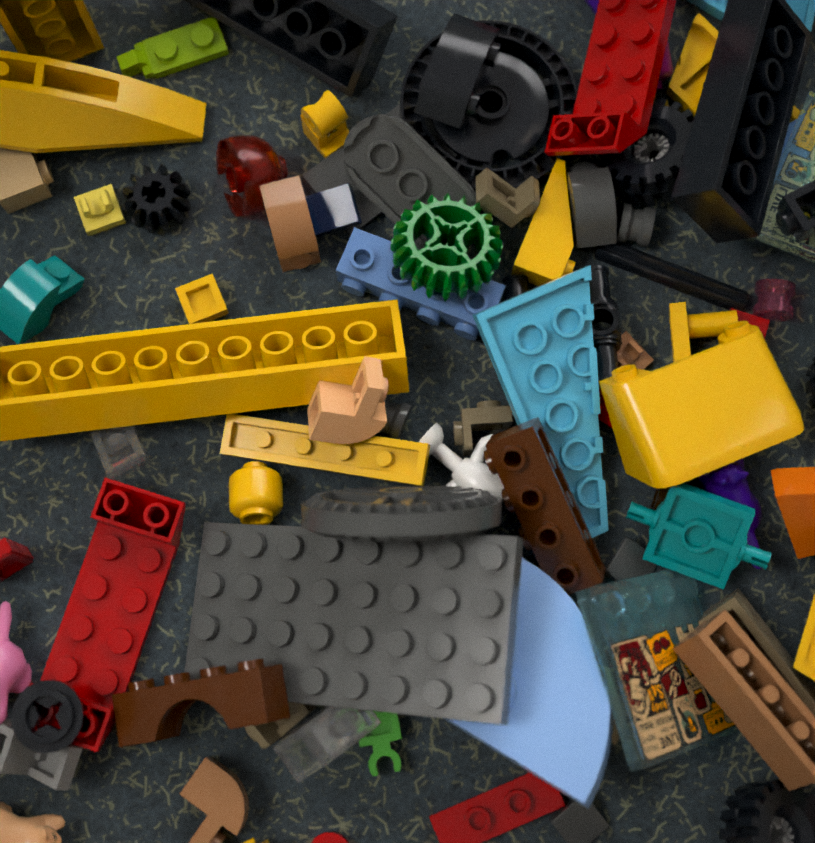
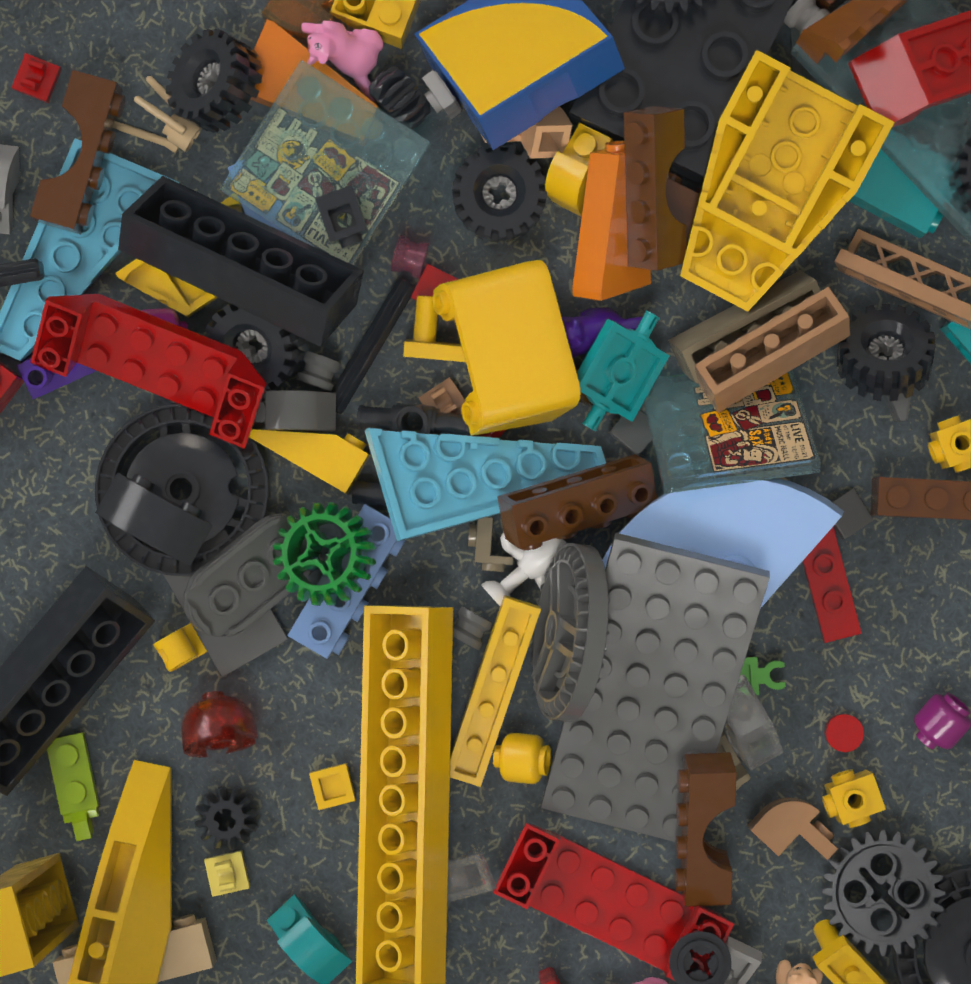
camera: 85 degrees left, 10 degrees up
(290, 223) = (275, 695): medium nougat brick -> none
(333, 210) = (265, 667): dark blue tile -> none
(352, 411) = (466, 664): light nougat brick -> none
(504, 200) = (280, 491): dark tan bracket -> none

